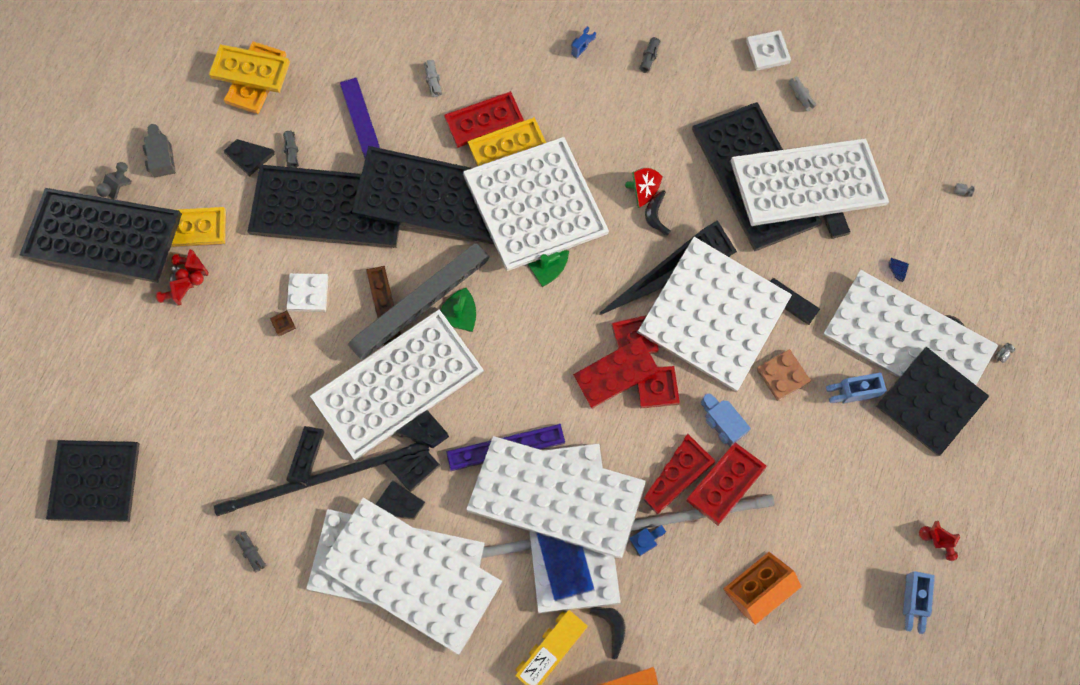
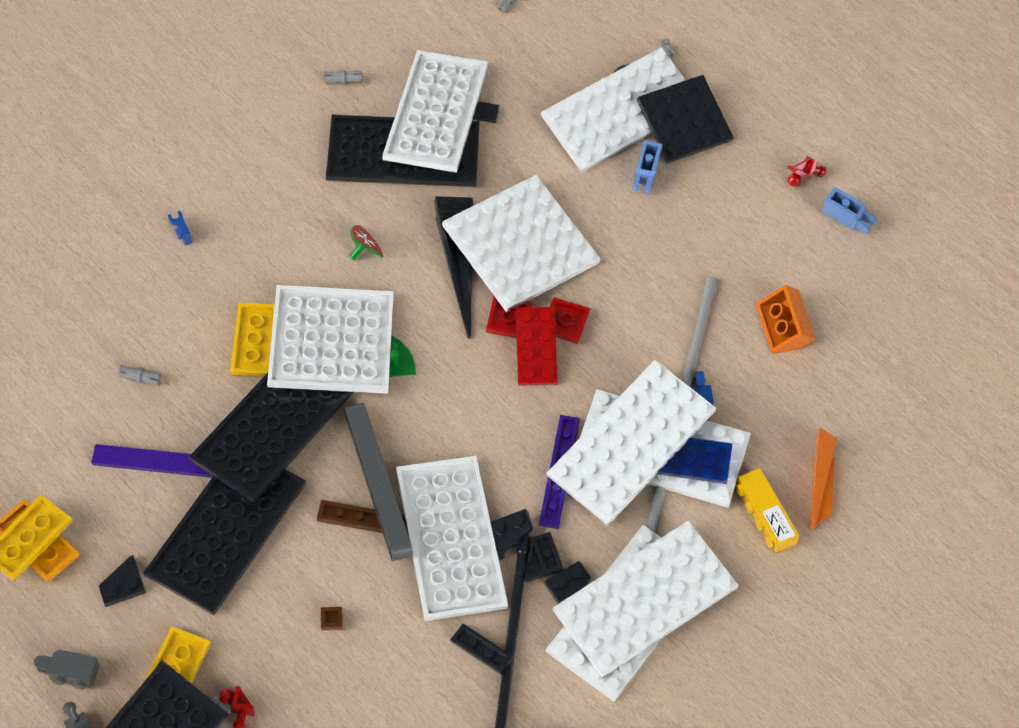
camera: 65 degrees left, 10 degrees down
(193, 266) = (222, 680): red piece -> none
(290, 149) = (140, 538): dark grey pin -> none
(307, 292) = (309, 584): white plate -> none
(460, 310) = (401, 452): green shield -> none
(483, 118) = (212, 348): red plate -> none
(616, 624) = (768, 449): black piece -> none
(650, 54) = (228, 178): dark grey pin -> none
(651, 213) = (395, 250): black piece -> none
(682, 470) = (653, 337): red wing -> none
(724, 419) = (623, 281): medium blue hinge -> none
(726, 483) = (682, 305): red plate -> none
(768, 50) = (283, 82): white plate -> none
(783, 374) = (603, 218): nougat plate -> none
(798, 305) = (549, 175): black tile -> none
(898, 268) = (552, 86): clear blue tile -> none

